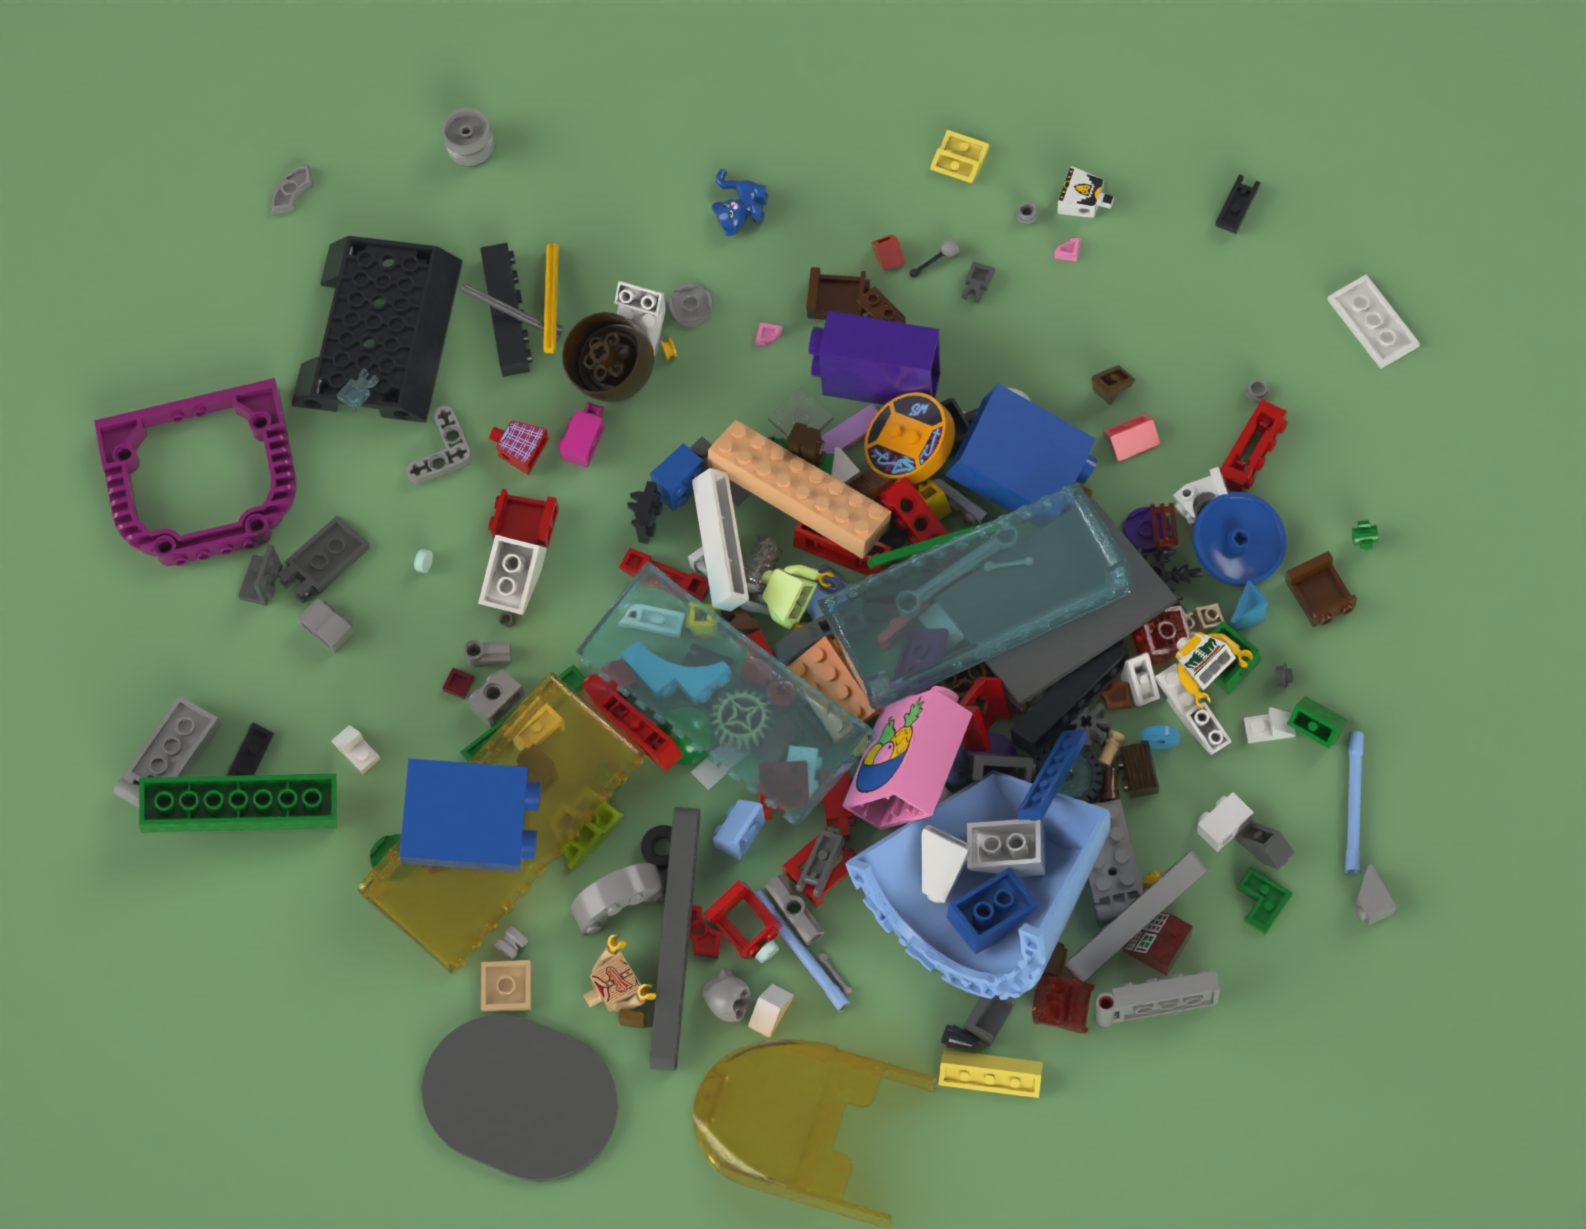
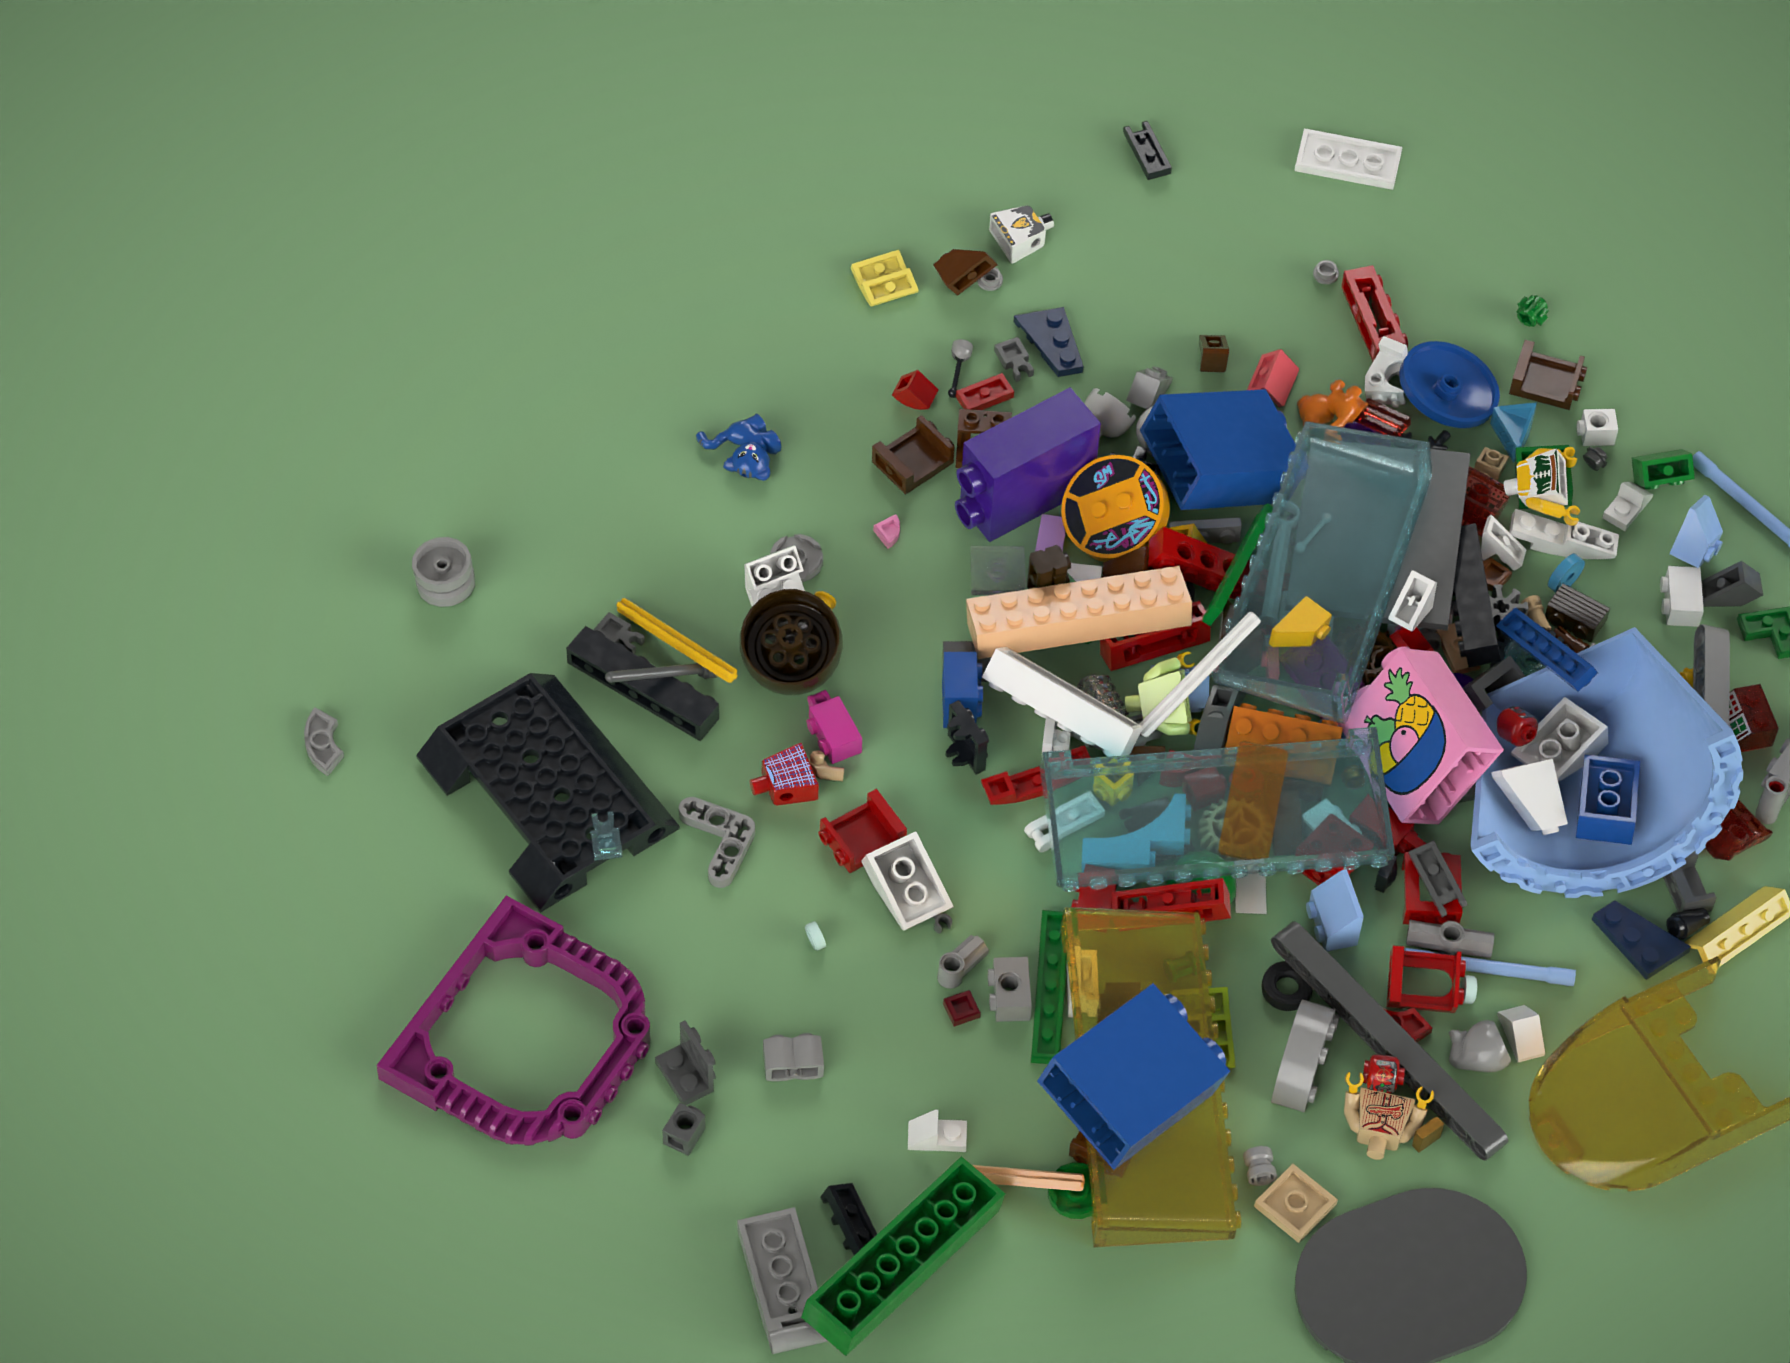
camera: 55 degrees left, 10 degrees down
(213, 606) = (684, 1139): none -> dark grey brick
(323, 558) = (723, 1006): dark grey tile -> none
(367, 819) = (1033, 1178): none -> light nougat axle
(526, 263) = (619, 632): none -> dark grey plate
(549, 458) = (822, 769): none -> tan arm
(641, 955) = (1383, 1073): none -> red head
(754, 708) = (1253, 801): none -> clear orange piece
(805, 831) = (1386, 875): none -> black tile
(809, 594) = (1199, 673): none -> white axle
(823, 959) = (1512, 958): light grey hinge -> none
(915, 619) = (1301, 625): none -> yellow slope
(917, 1021) = (1639, 940): none -> dark blue wing
(930, 290) = (985, 393): none -> red plate
(983, 809) = (1517, 726): none -> red head
(985, 369) = (1110, 413): none -> white cylinder
(1006, 667) = (1414, 601): none -> white slope
(1008, 191) = (963, 268): none -> reddish brown slope
(1020, 289) = (1053, 338): none -> dark blue wing
(1039, 374) = (1148, 386): none -> light grey slope
(1068, 250) = (1056, 282): bright pink tile -> none
(1143, 491) = (1322, 408): none -> orange animal
(1277, 788) = (1699, 534): none -> light blue slope
(1314, 664) = (1598, 427): none -> white brick

